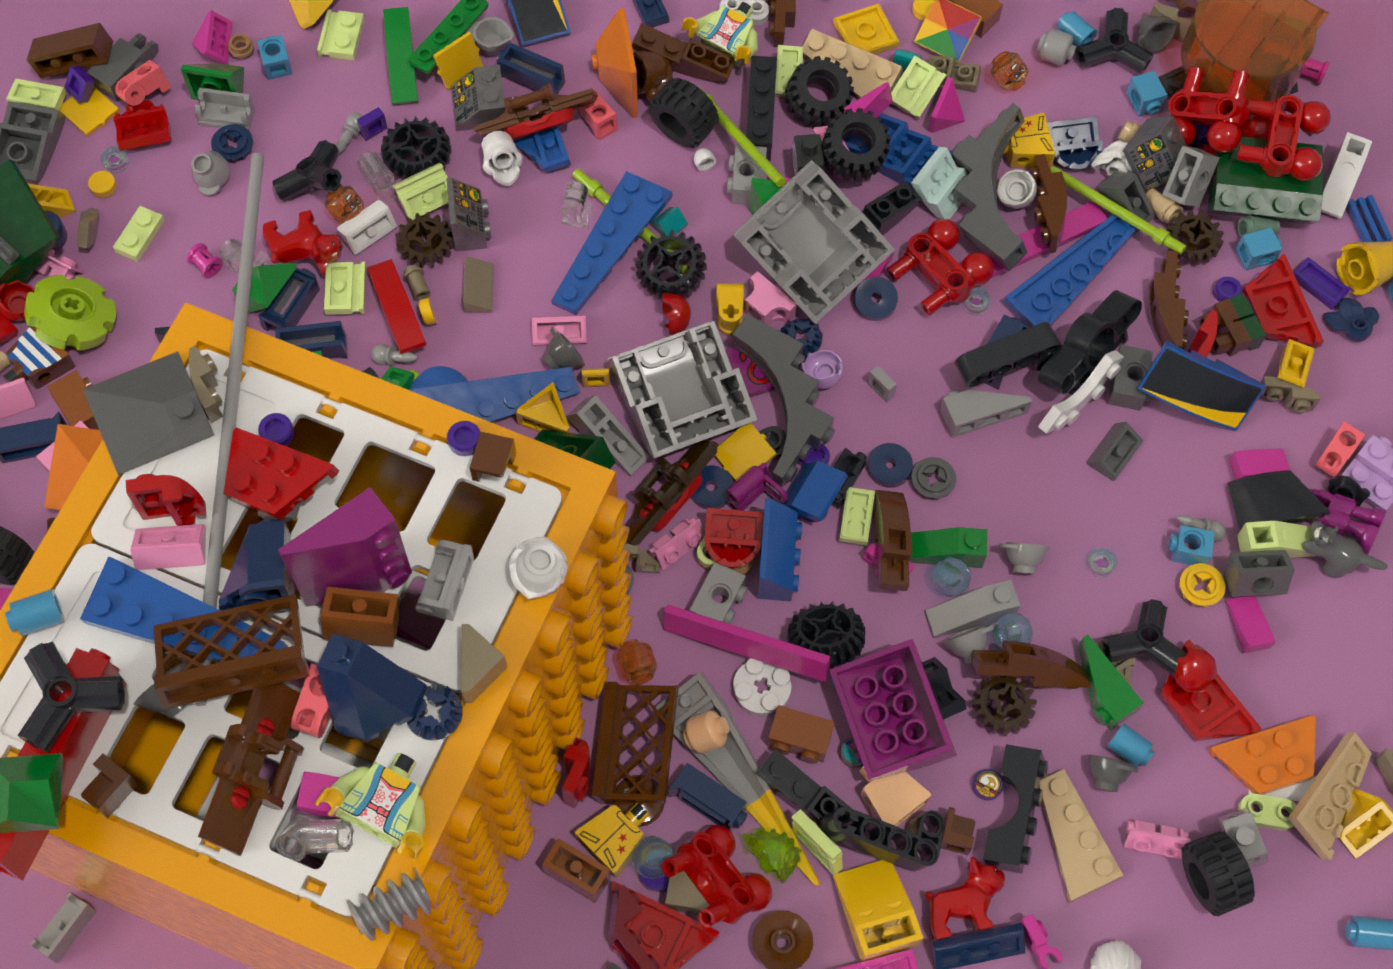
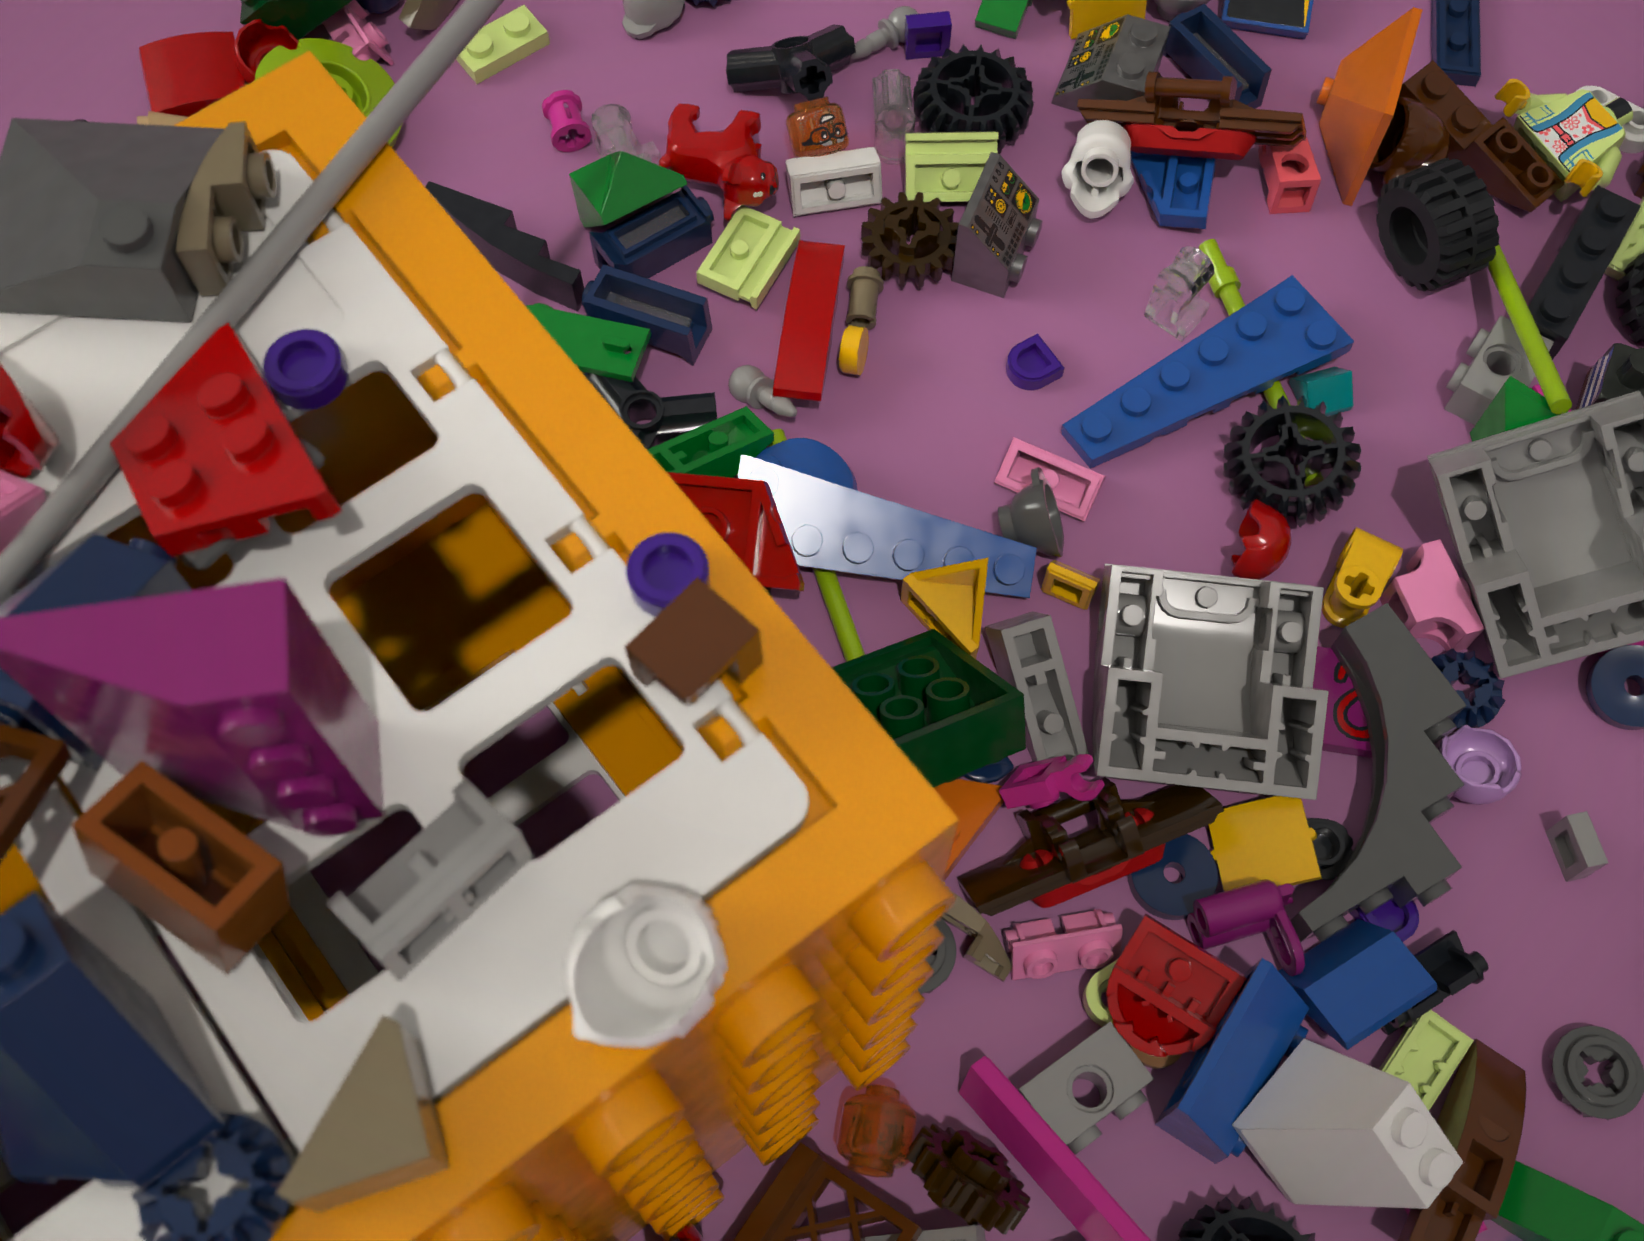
camera: 30 degrees right, 0 degrees up
(478, 285) = (955, 347): dark tan slope -> none
(520, 276) = (1033, 364): none -> dark purple tile
(631, 473) = (1041, 781): none -> dark pink plate
(686, 656) = (968, 1178): none -> dark brown gear
(704, 159) = (1432, 318): white hinge -> none
(835, 555) = (1346, 1134): none -> white slope
(892, 454) = (1547, 998): dark blue piece -> none

